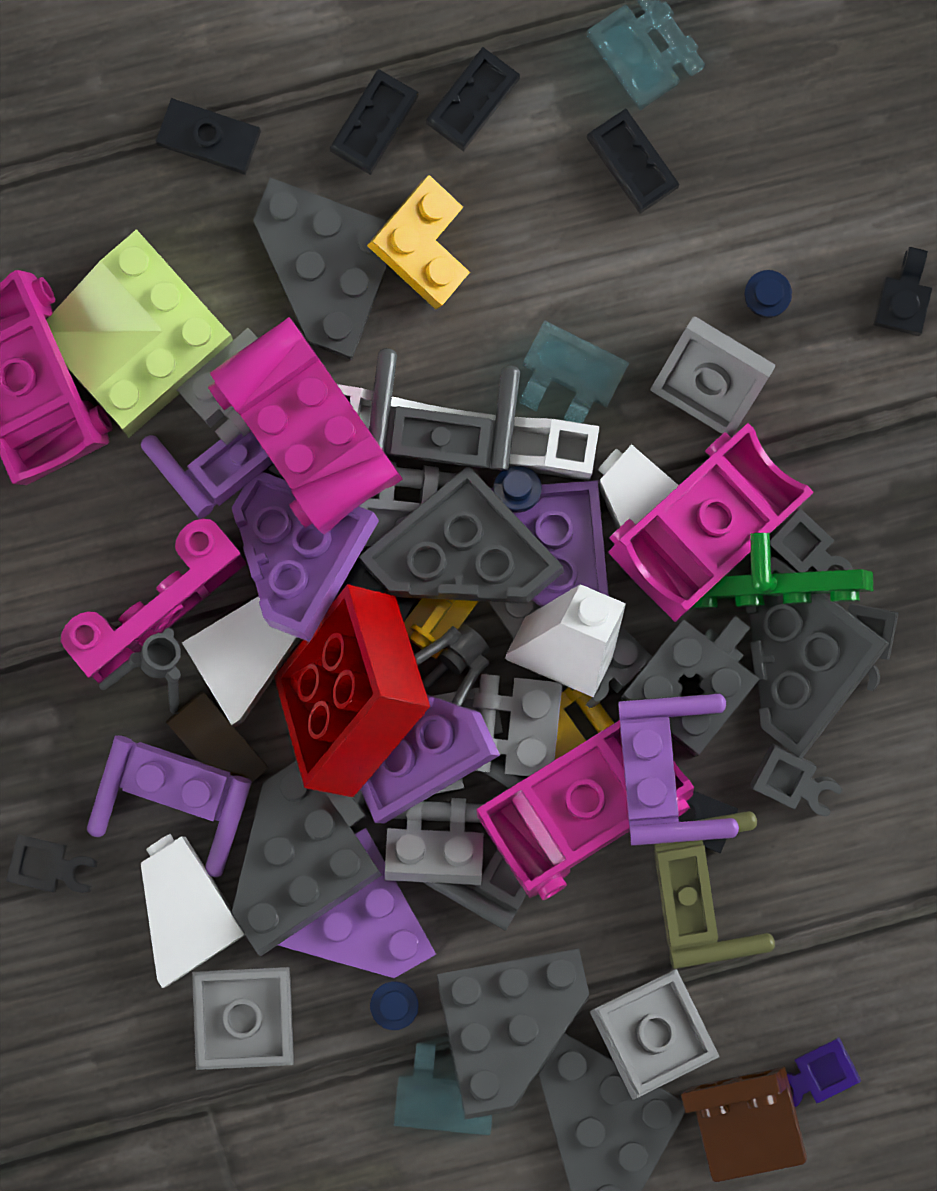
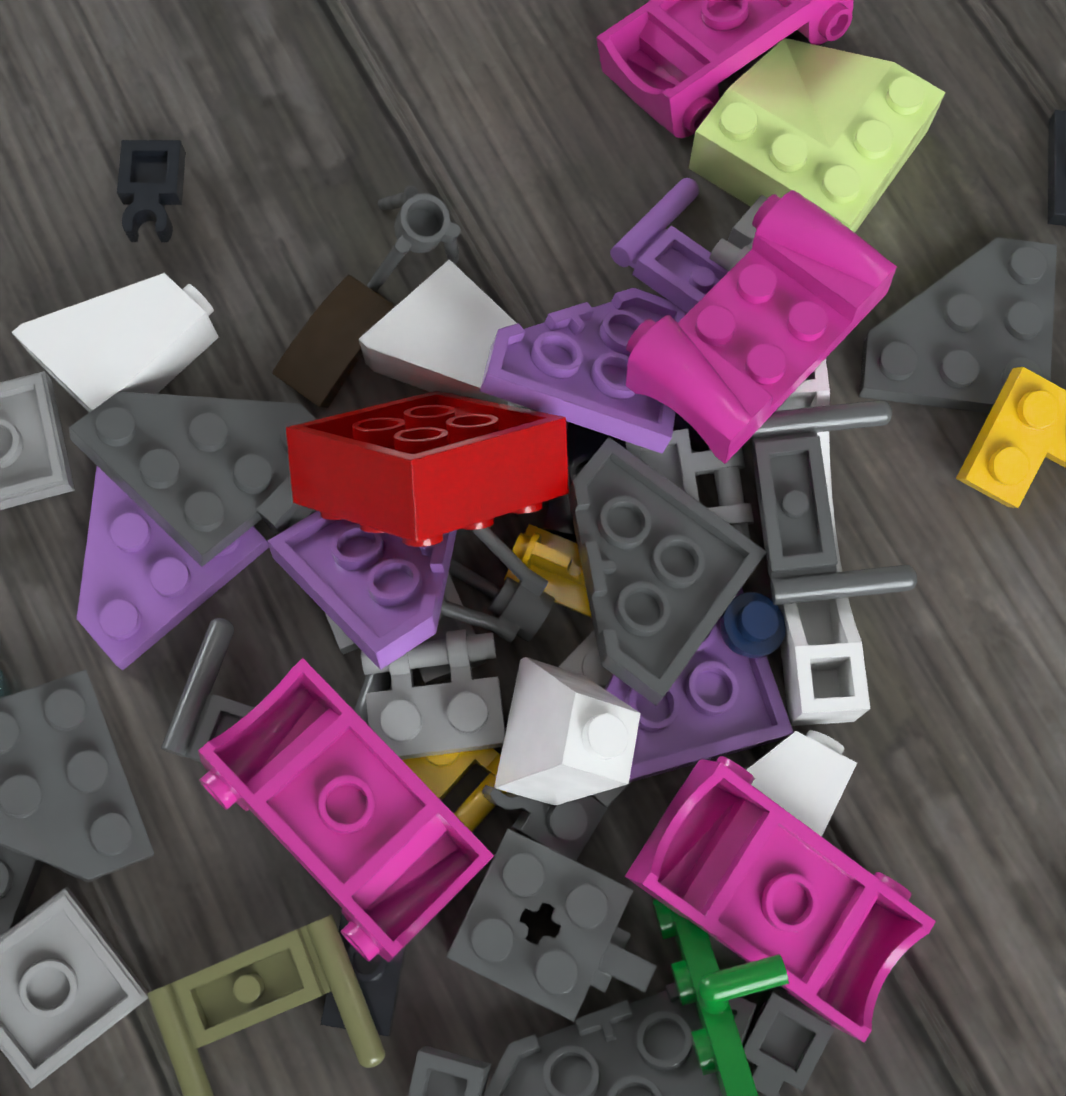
camera: 80 degrees right, 10 degrees down
(102, 648) = (543, 263): dark pink piece -> none
(174, 783) = (273, 304): medium lavender plate -> none
(394, 1005) = (41, 628): dark blue plate -> none
(436, 855) = (243, 629): light grey plate -> none
(575, 365) = (939, 668): clear light blue plate -> none
(651, 772) = (397, 889): medium lavender plate -> none
(712, 377) = (985, 857): light grey bracket -> none

